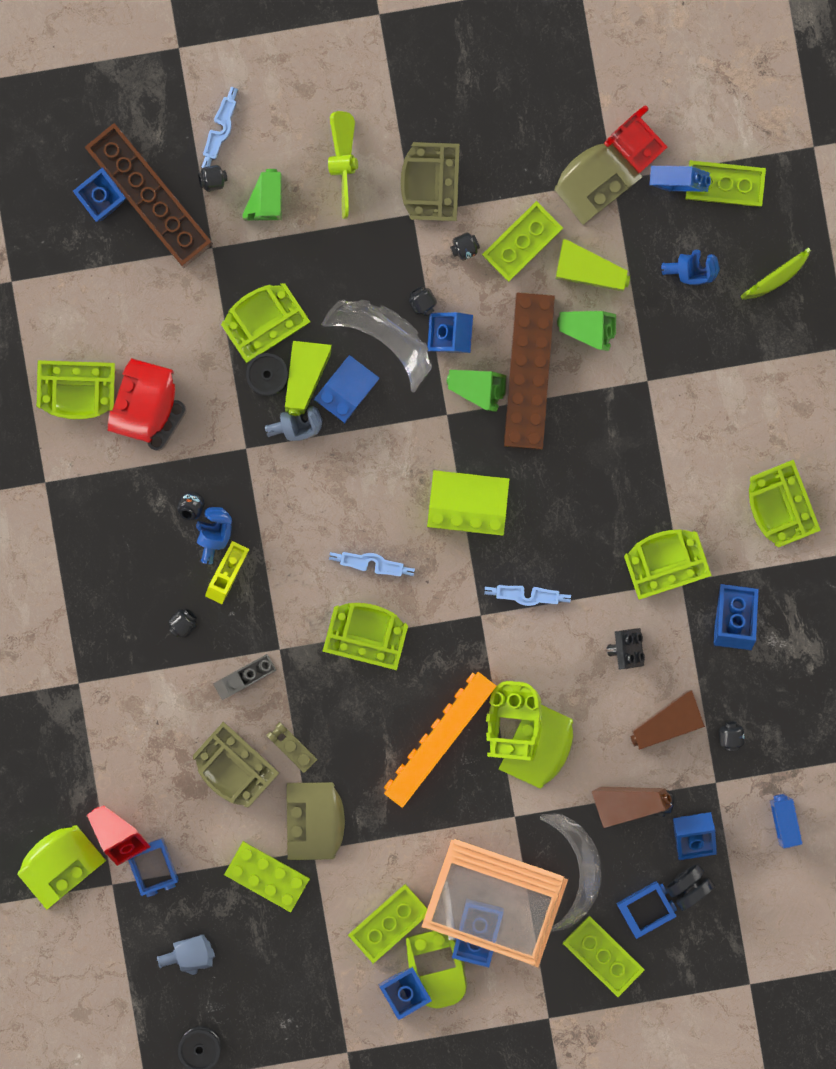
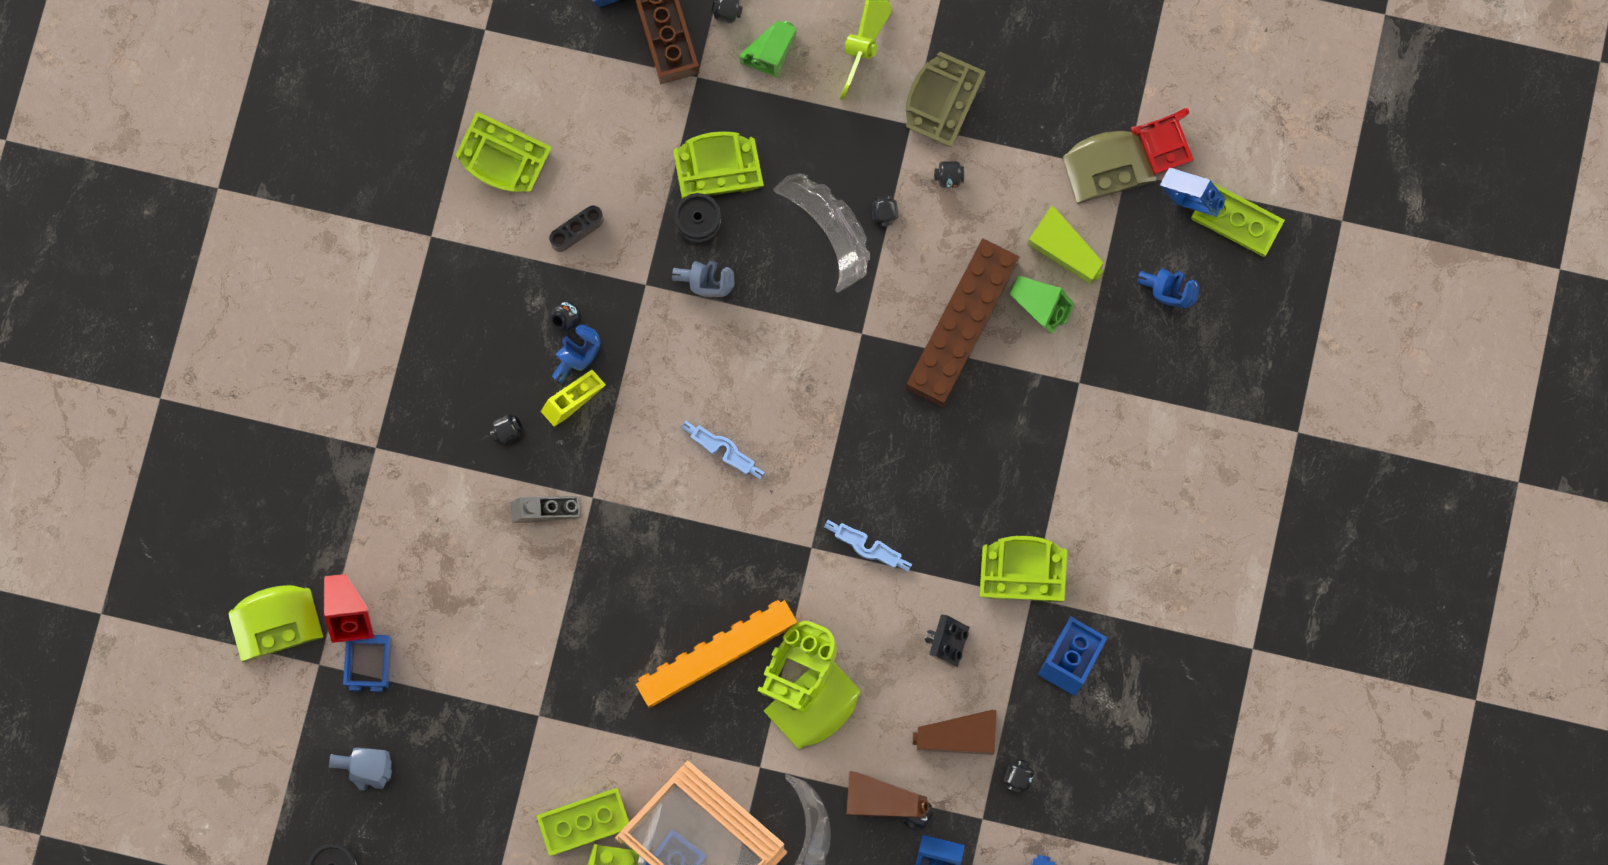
camera: 30 degrees right, 10 degrees down
(142, 401) = (562, 194): slope -> none
(233, 767) = (494, 594): olive slope -> none
(267, 876) = (479, 721): lime plate -> none
(292, 748) = (562, 601): olive plate -> none
(305, 371) = (736, 232): lime slope -> none
(314, 821) = (552, 685): olive slope -> none
(346, 389) = (770, 266): blue slope -> none
(366, 634) = (686, 516): lime slope -> none
(450, 332) = (899, 252): blue slope -> none
(468, 503) = (845, 429): lime slope -> none
(479, 387) = (908, 316): bright green slope -> none
(522, 241) = (1009, 193): lime plate -> none
(777, 277) = (1251, 327): lime slope -> none
(782, 504) = (1166, 560): lime slope -> none

